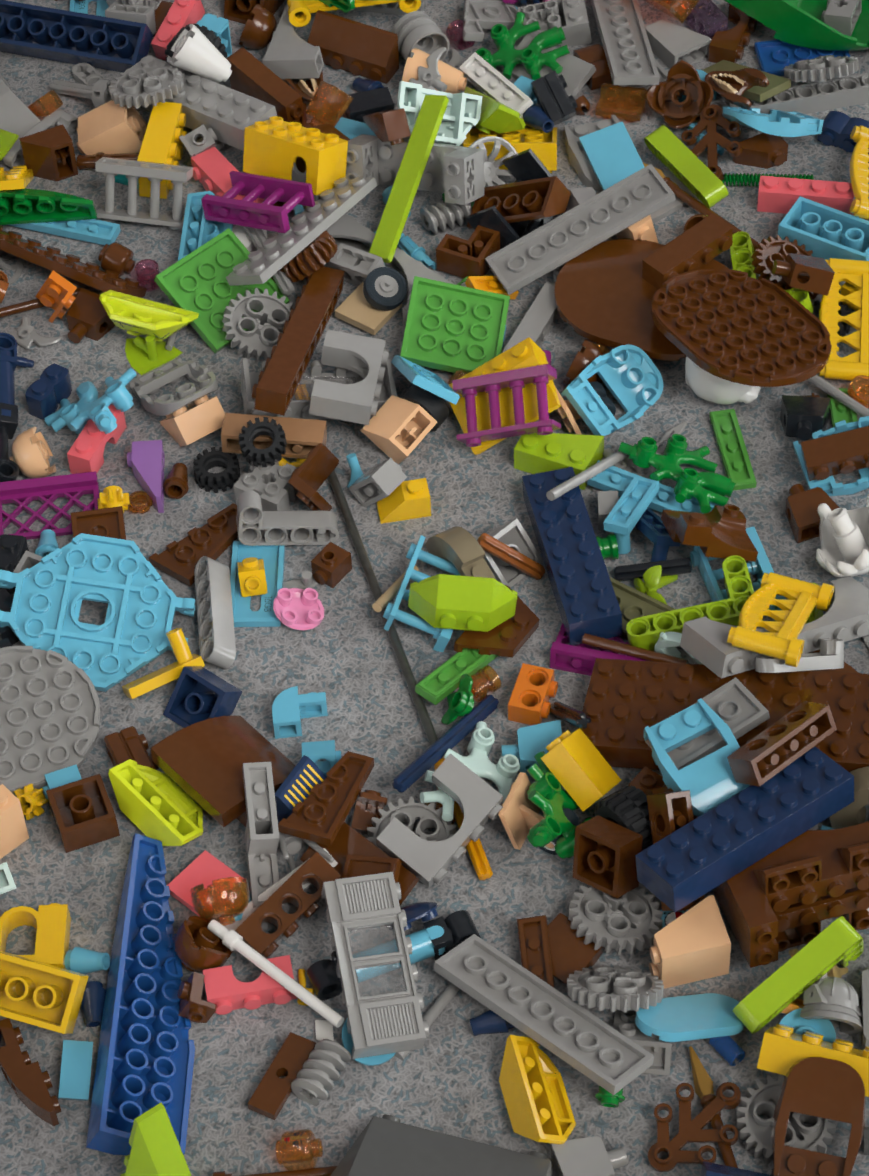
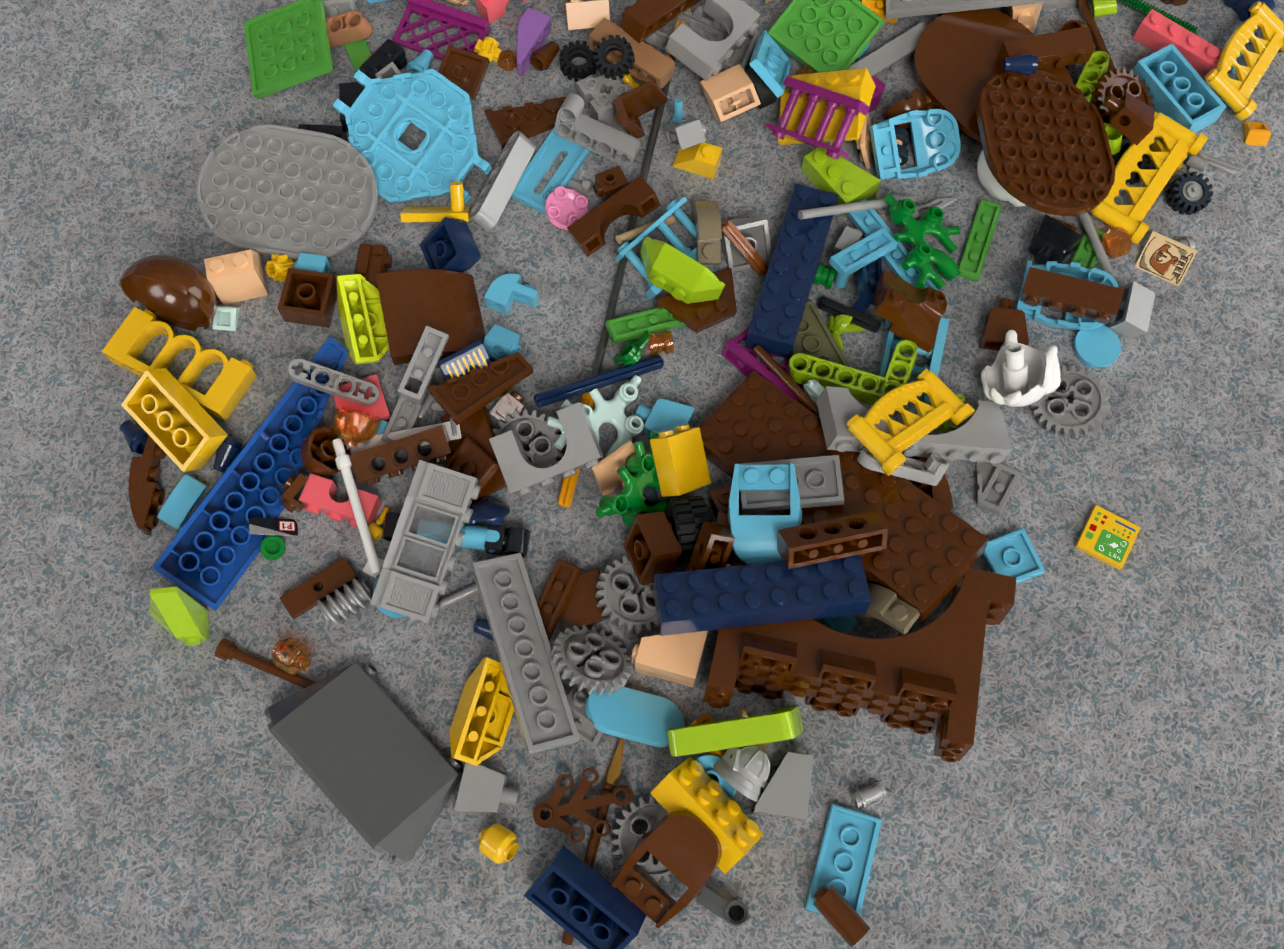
camera: 25 degrees right, 20 degrees up
(86, 960) = (239, 417): medium azure cone -> none
(169, 868) = (335, 379): none -> light grey beam
(193, 1043) = (271, 526): none -> sticker
(205, 1065) = (272, 547): none -> green tile
(252, 577) = (547, 163): yellow bracket -> none
(369, 562) = (633, 199): none -> reddish brown arch
(531, 695) = (686, 370): orange brick -> none
(570, 715) = (704, 409): black axle -> none
(675, 270) = (1021, 64): none -> dark blue cone
(734, 1049) = (648, 756): blue piece -> none

